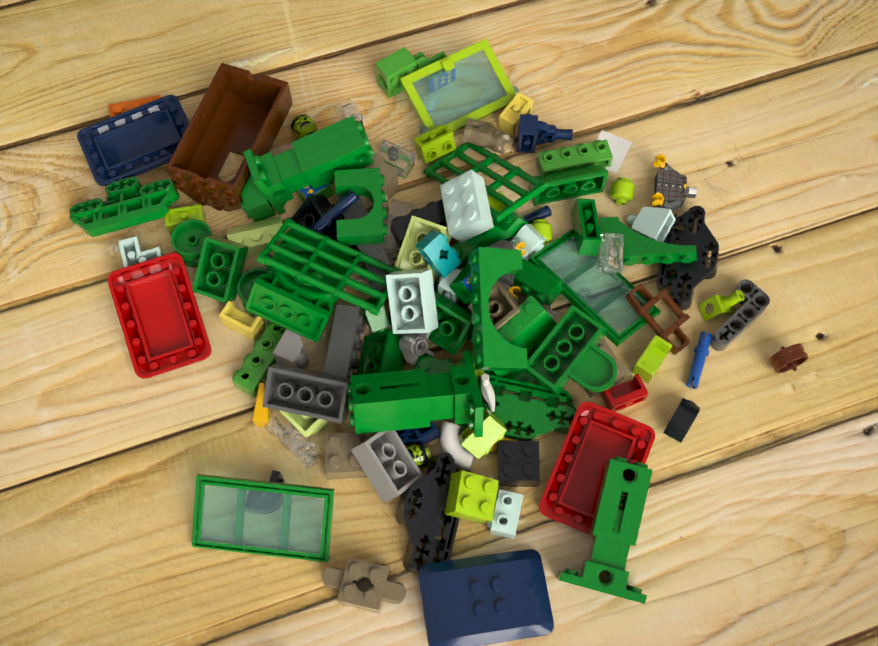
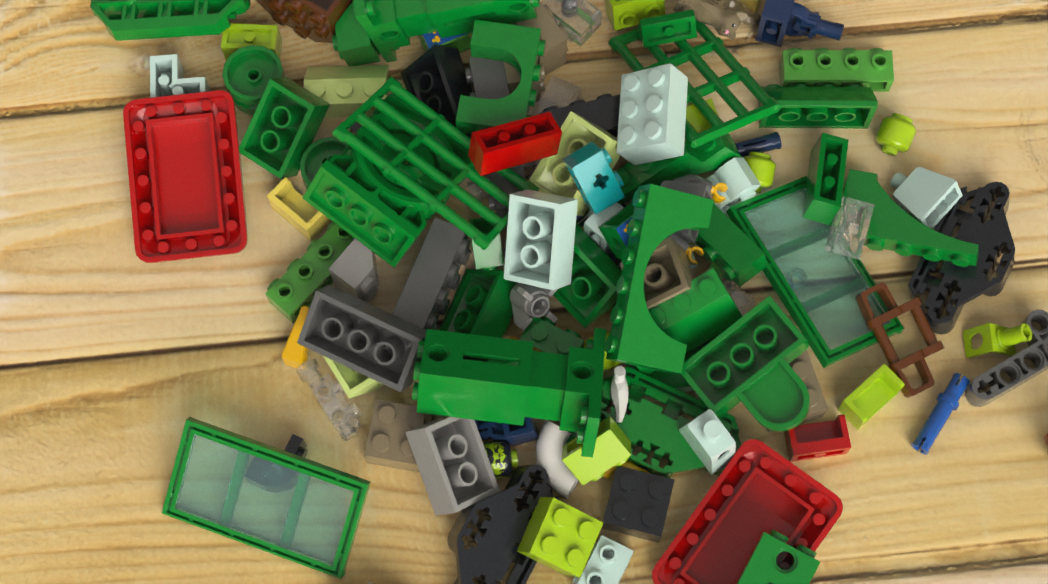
camera: 15 degrees right, 5 degrees up
(337, 210) = (452, 87): dark blue pin -> none
(380, 242) = (514, 143): none -> red brick
(460, 153) = (668, 28): none -> green panel
(555, 409) = (709, 440): none -> light aqua torso
(618, 147) = (907, 66): white sticker -> none
(670, 186) = (968, 144): dark grey torso -> none
(682, 420) = (890, 495): black brick -> none

